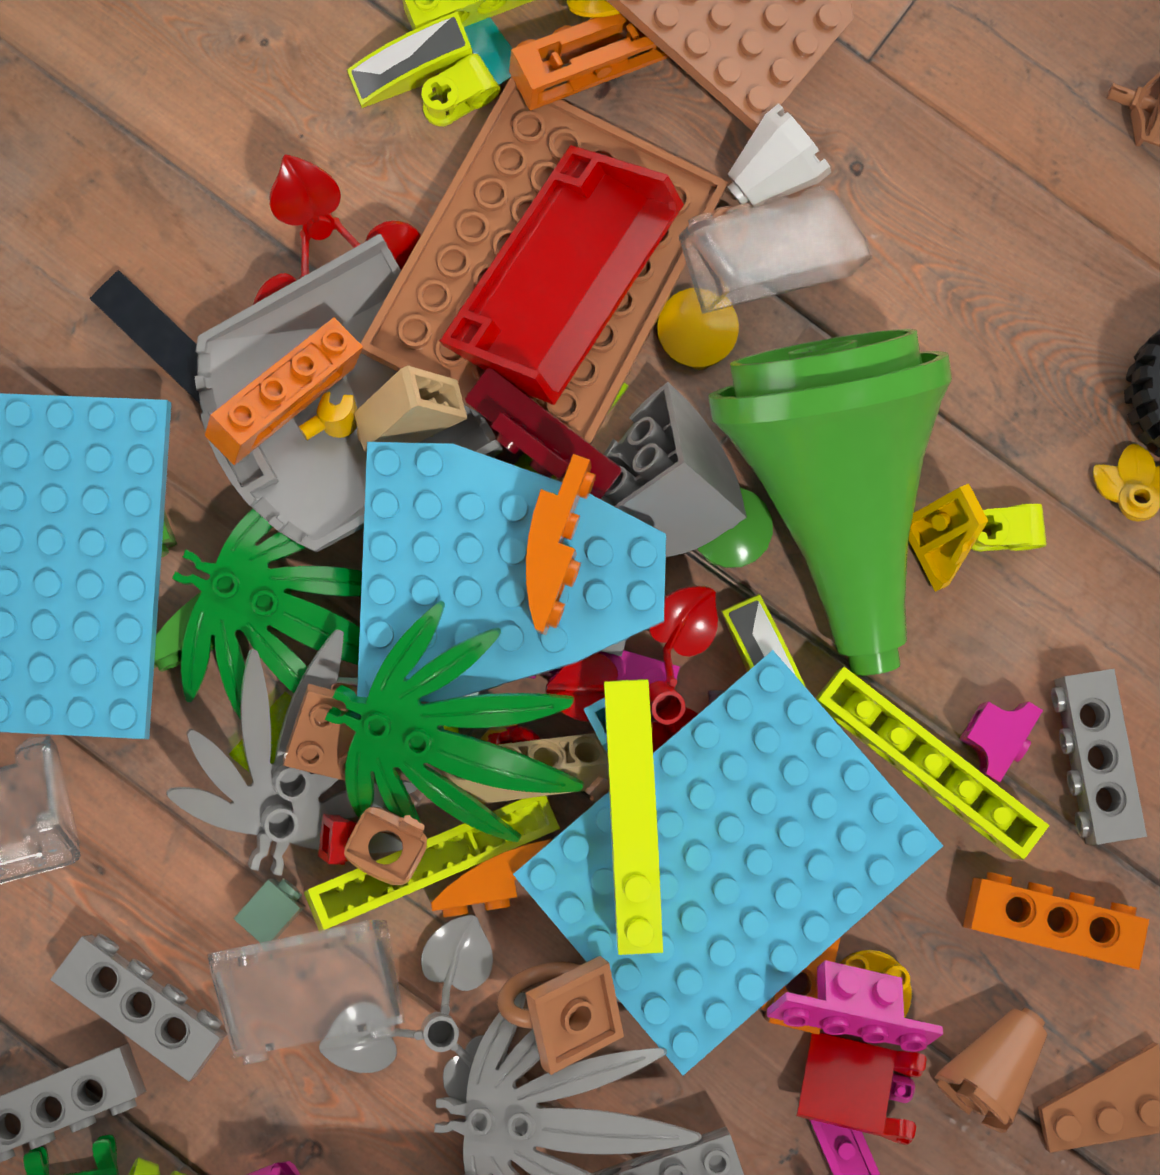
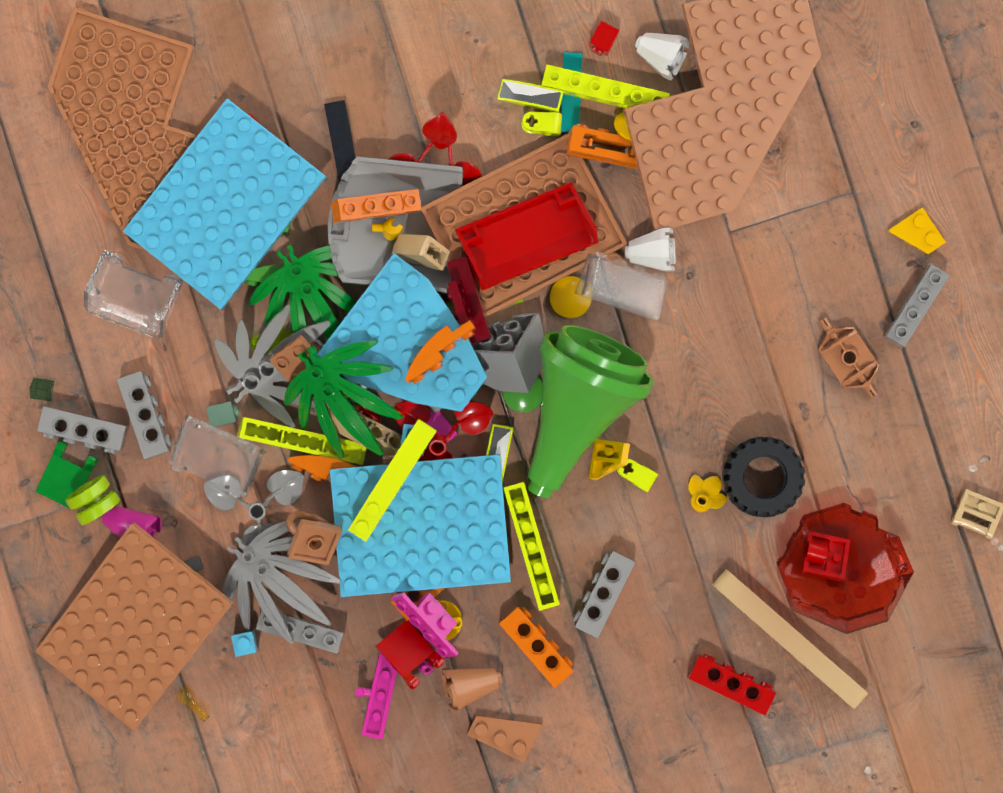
camera: 45 degrees right, 5 degrees up
(334, 837) = (268, 404): red tile -> none
(409, 832) = (300, 422): nougat piece -> none
(1000, 736) = (569, 556): dark pink brick -> none

